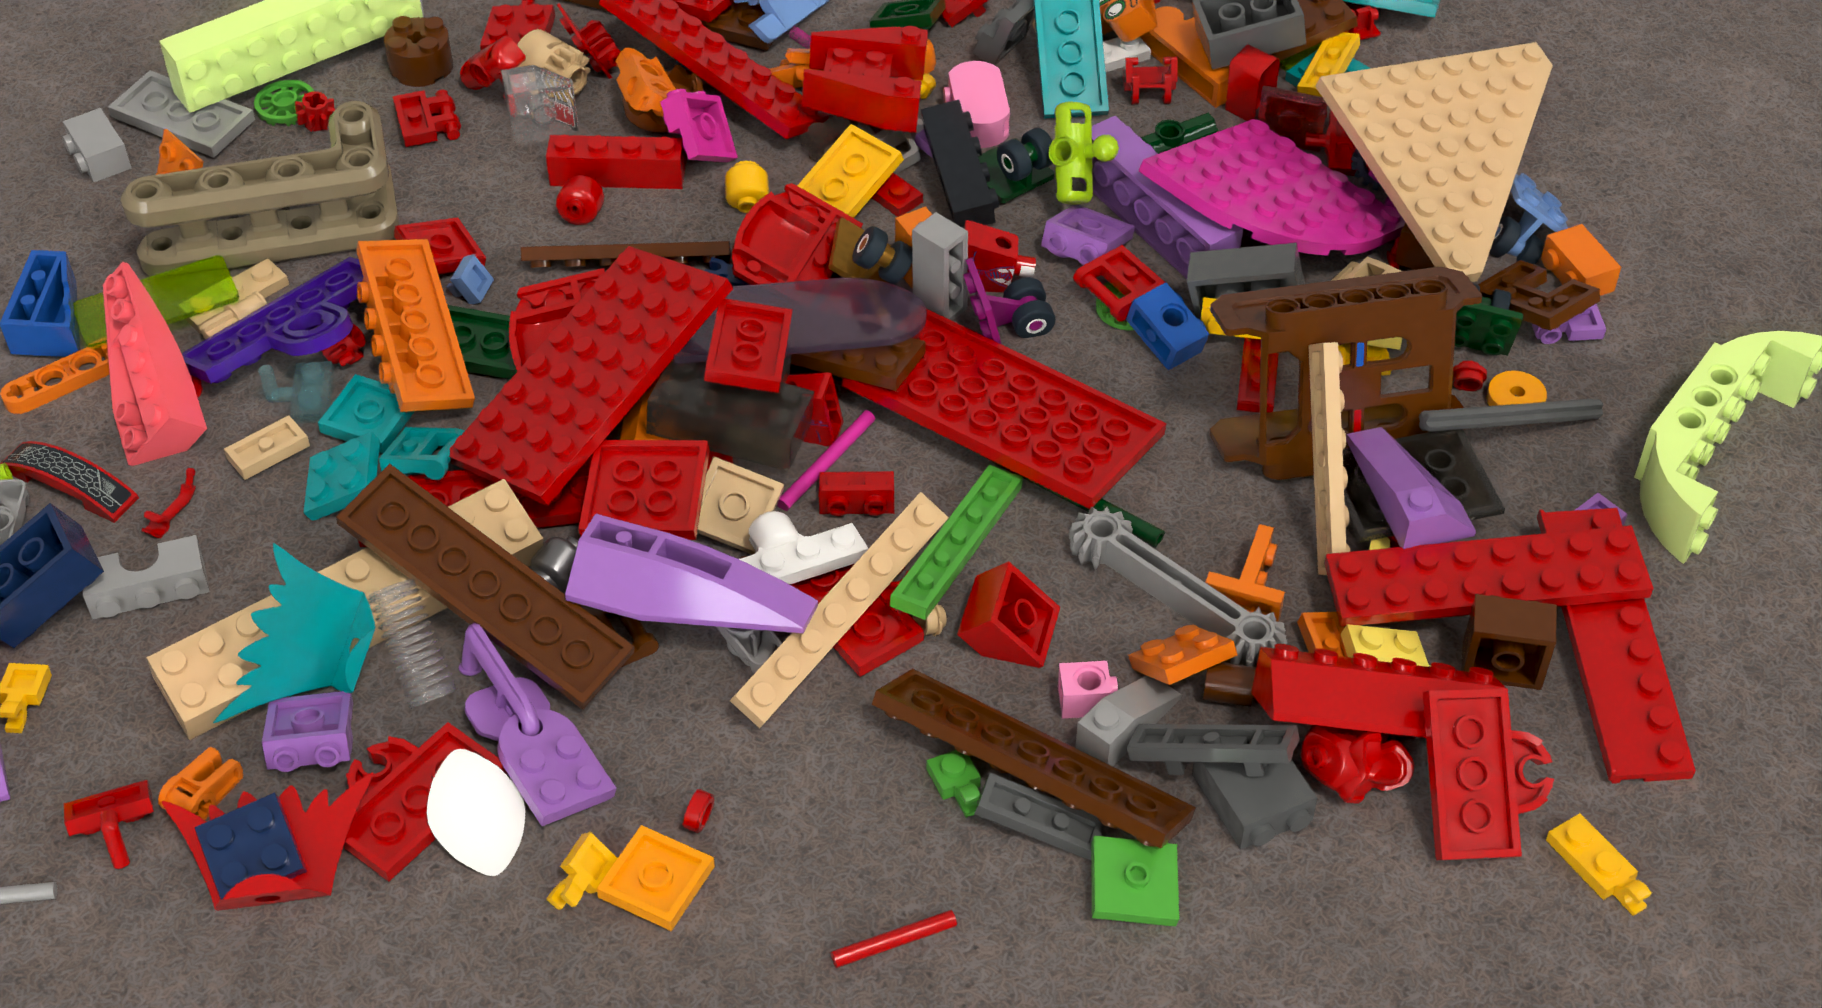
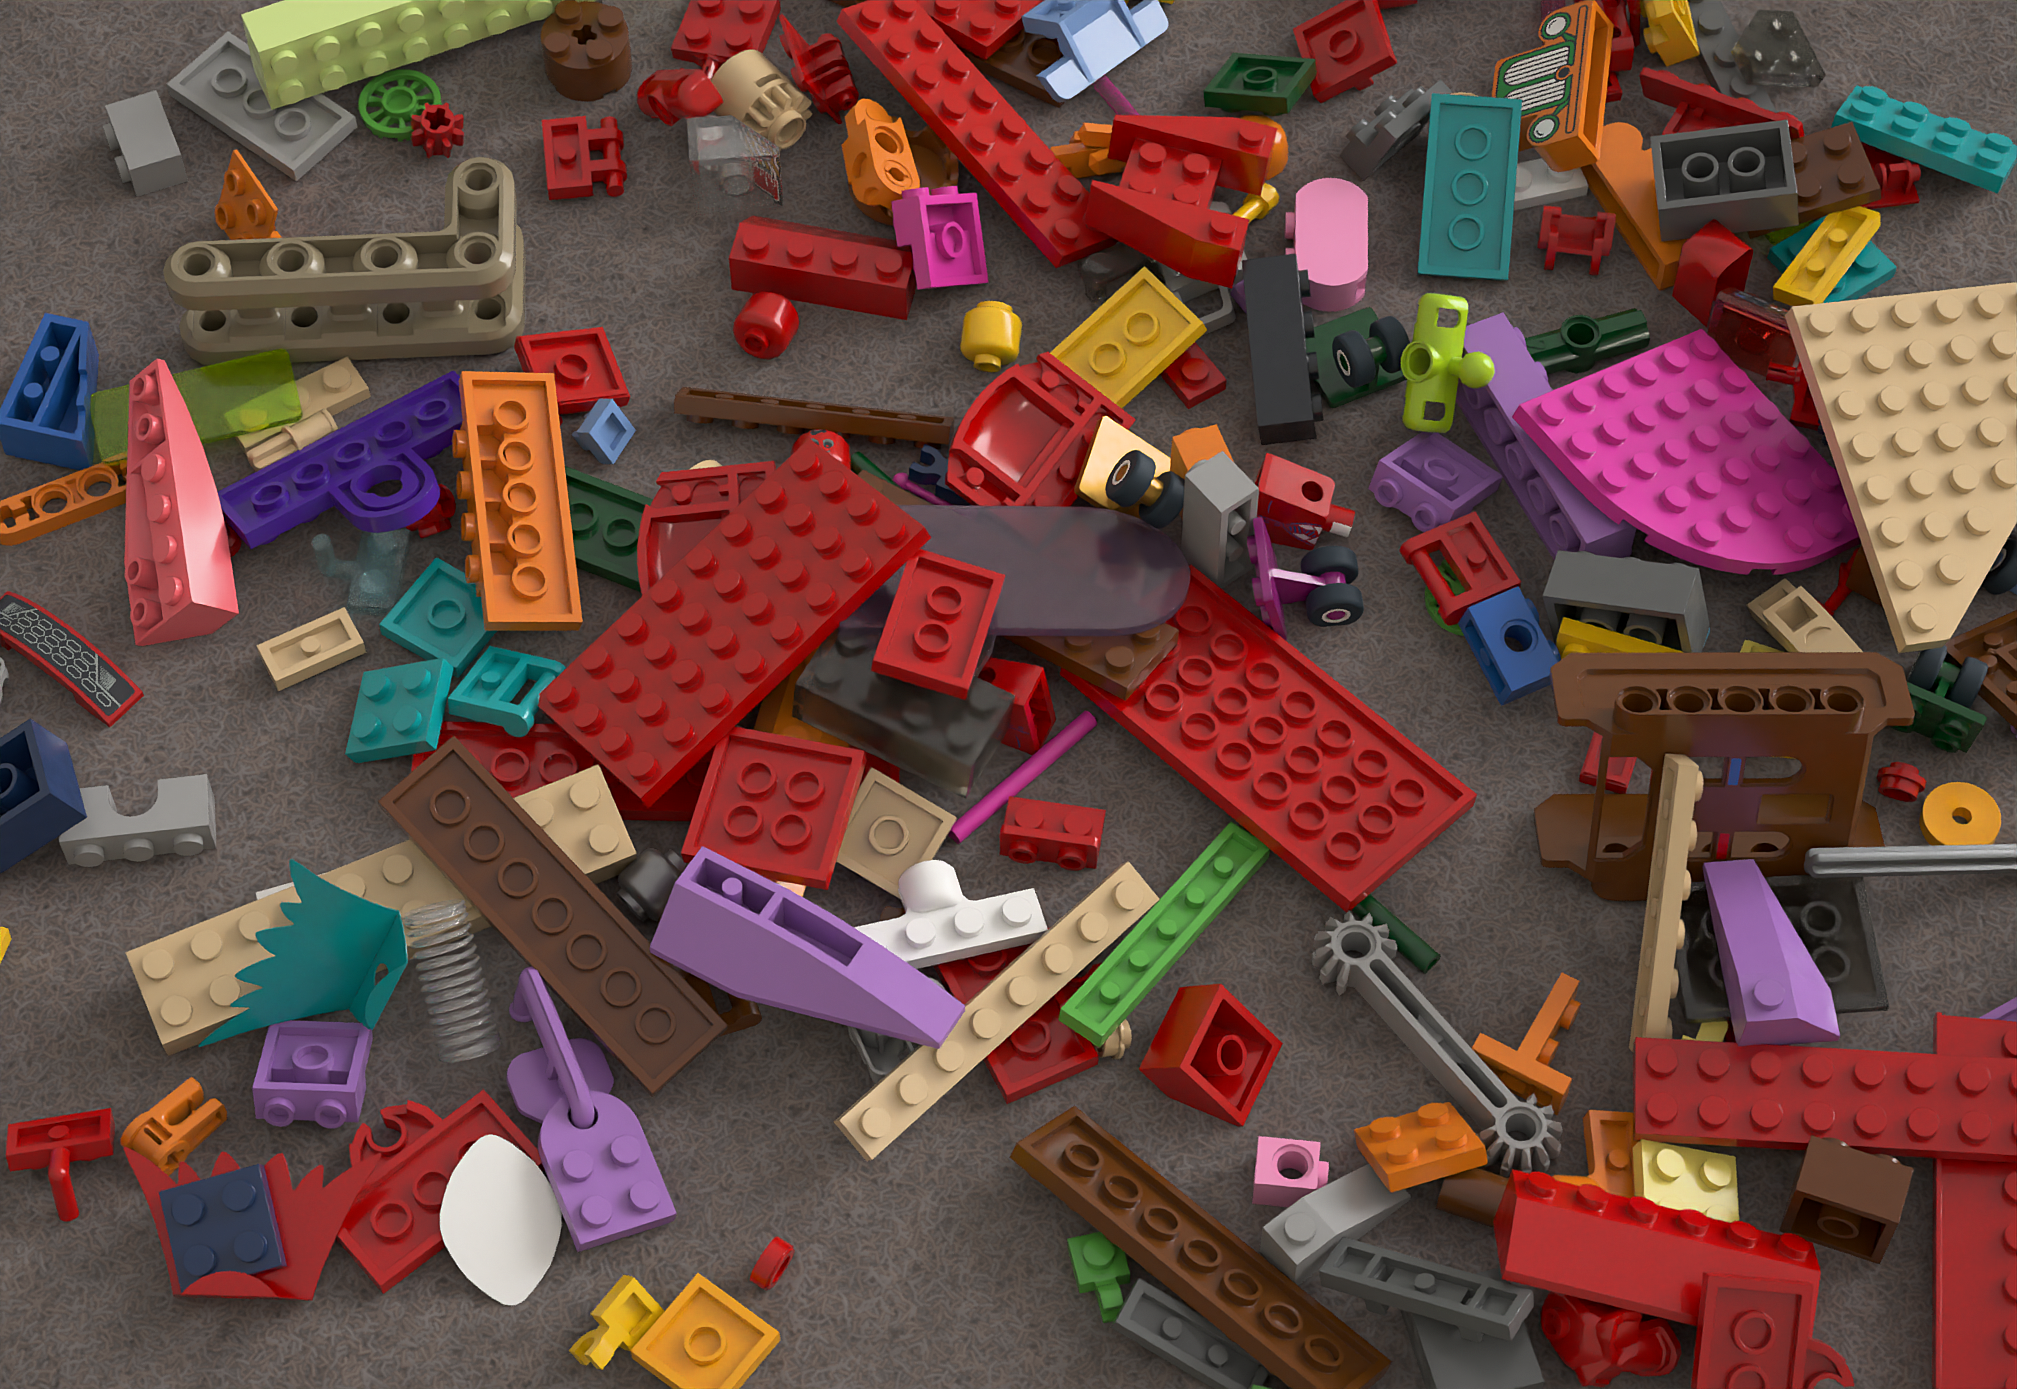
camera: 10 degrees right, 10 degrees up
(160, 523) = (165, 740): red piece -> none

